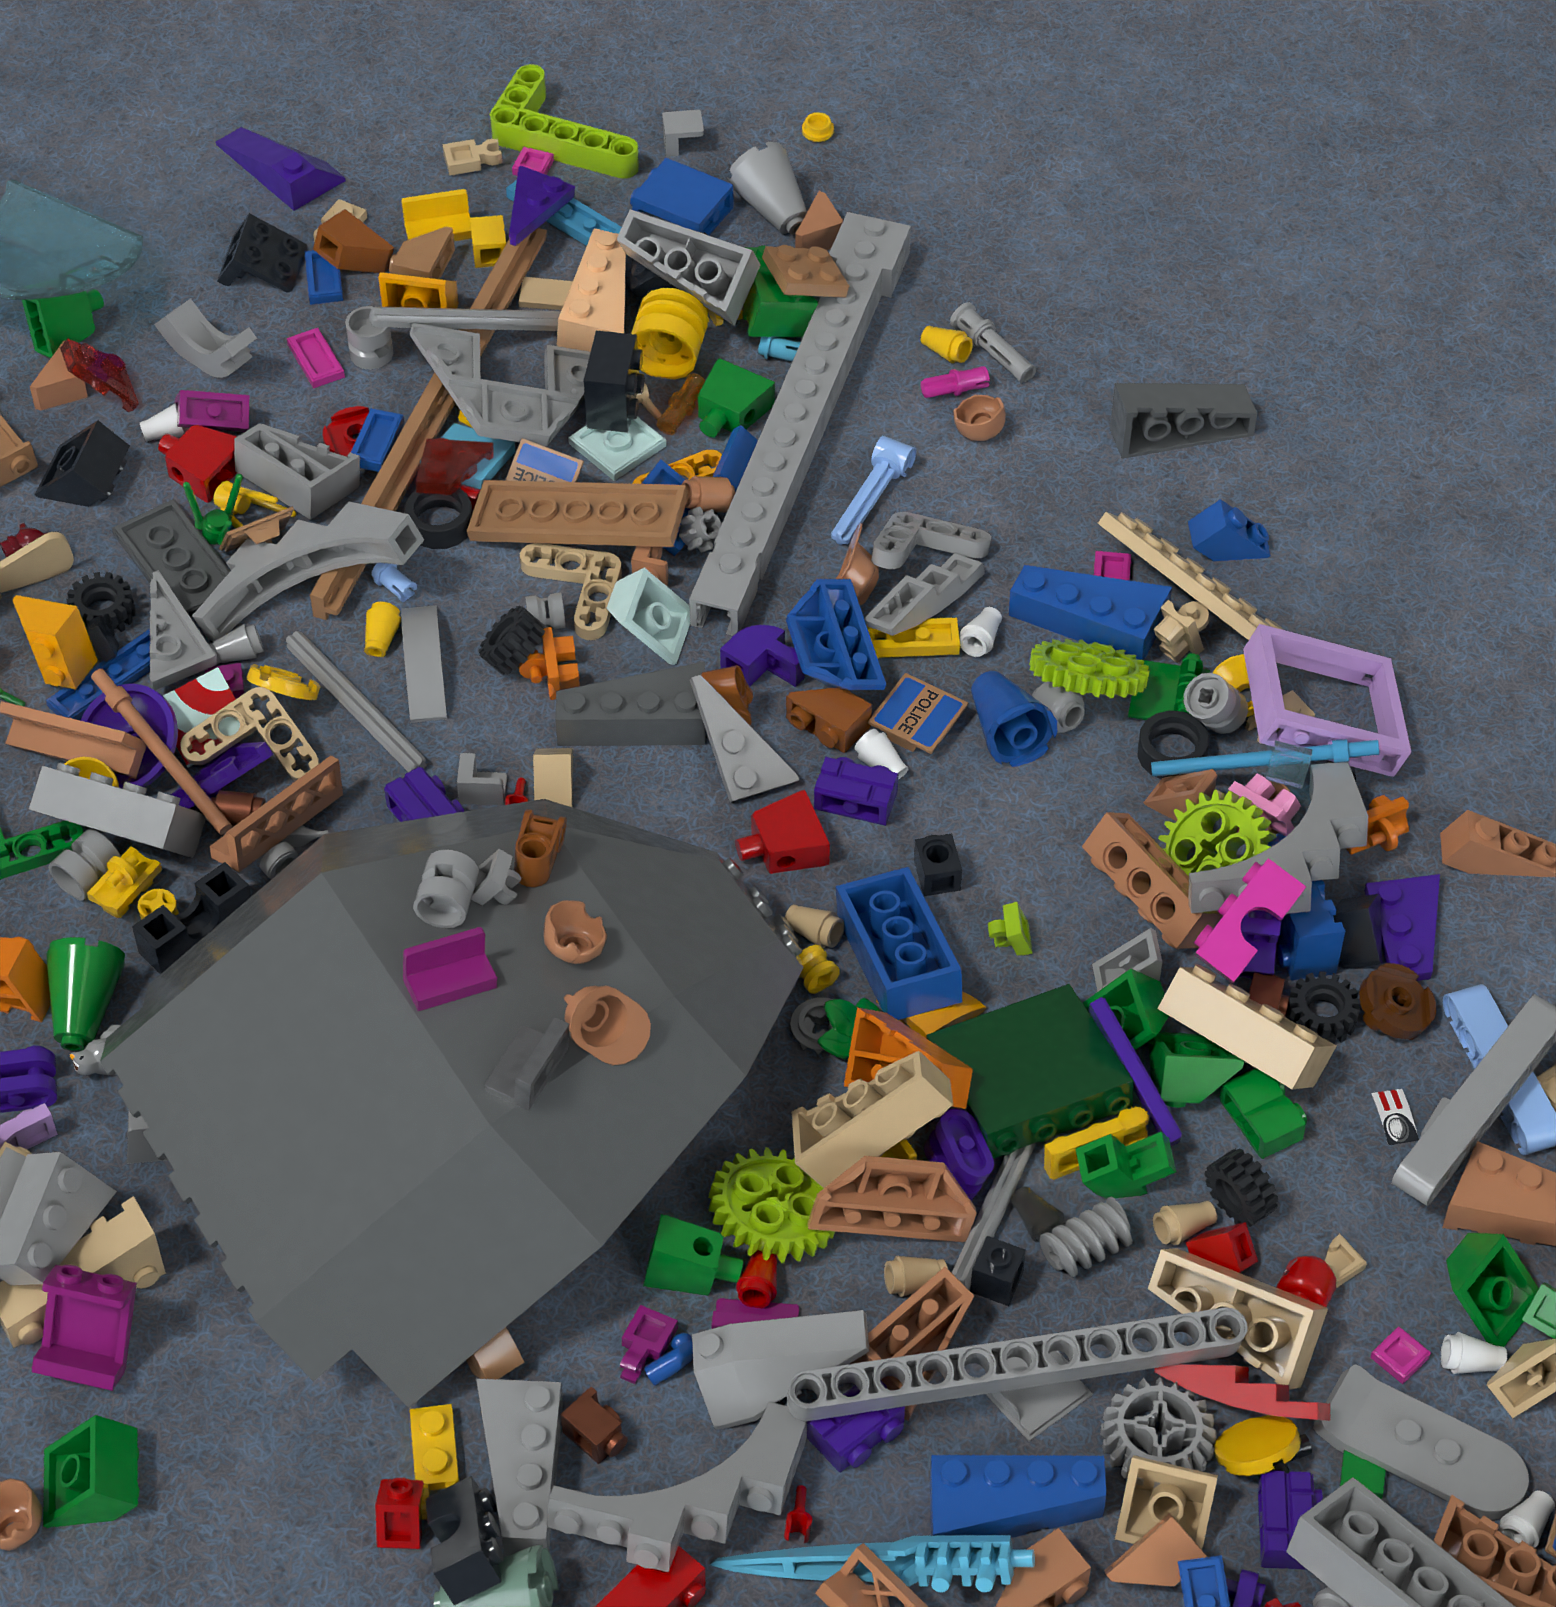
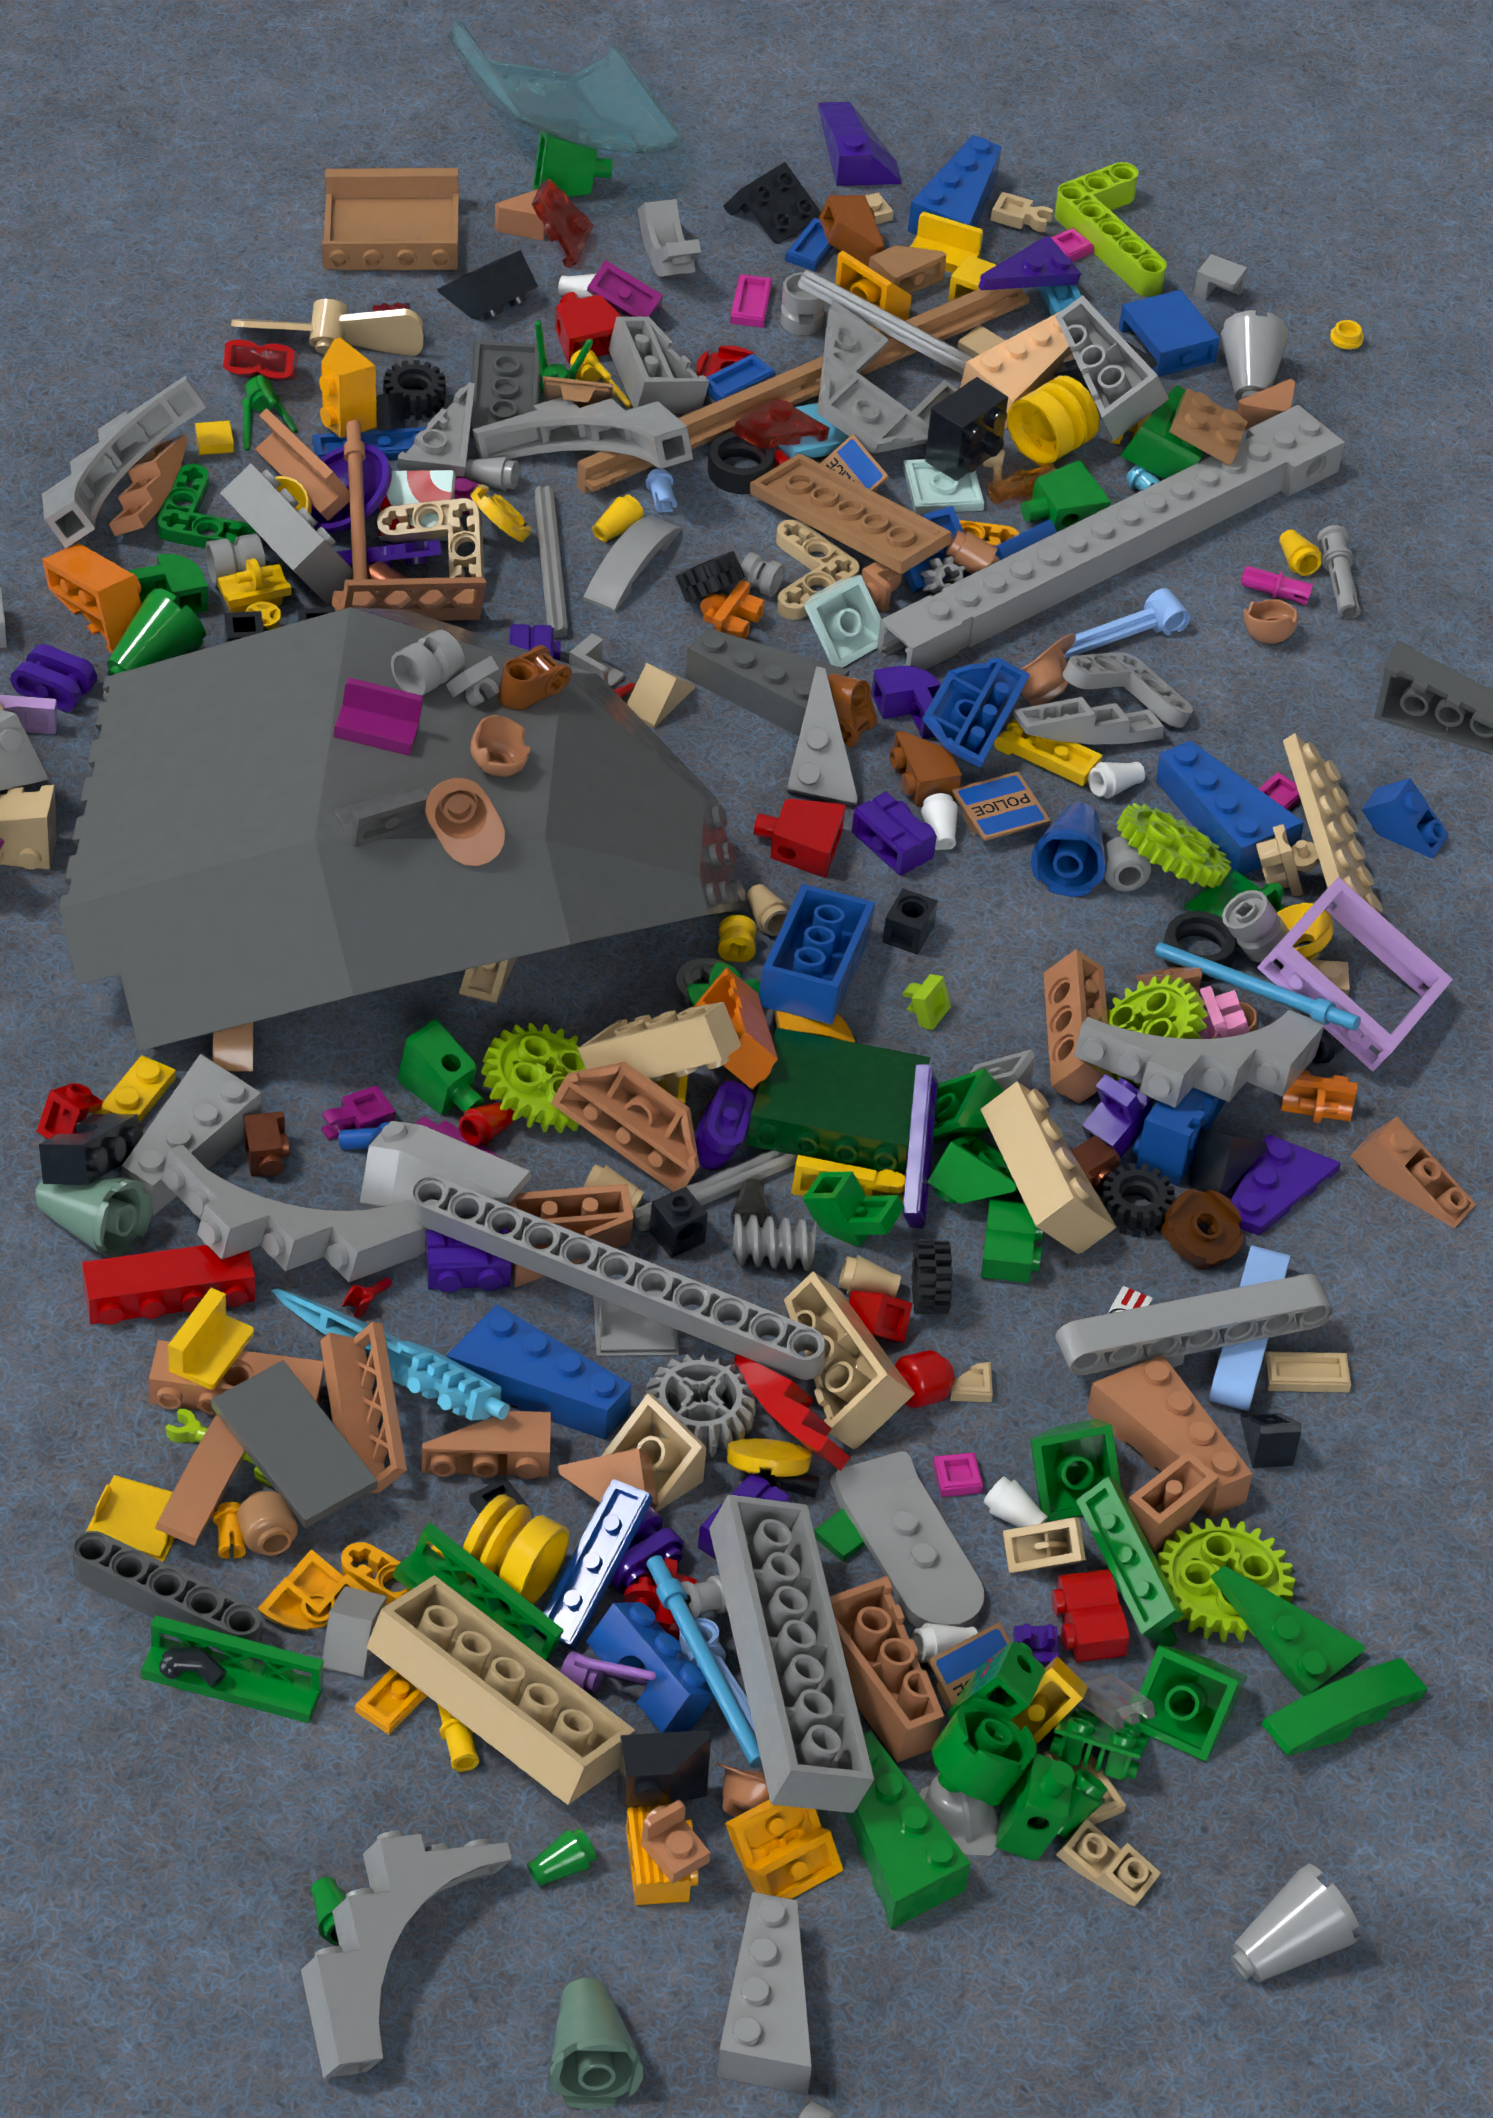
camera: 30 degrees right, 5 degrees down
(49, 916) = (177, 576): none -> green brick
(409, 159) = (961, 185): none -> blue wedge
(1268, 890) = (1071, 1082): dark pink arch -> none
(1288, 764) = (1268, 997): clear light blue tile -> none

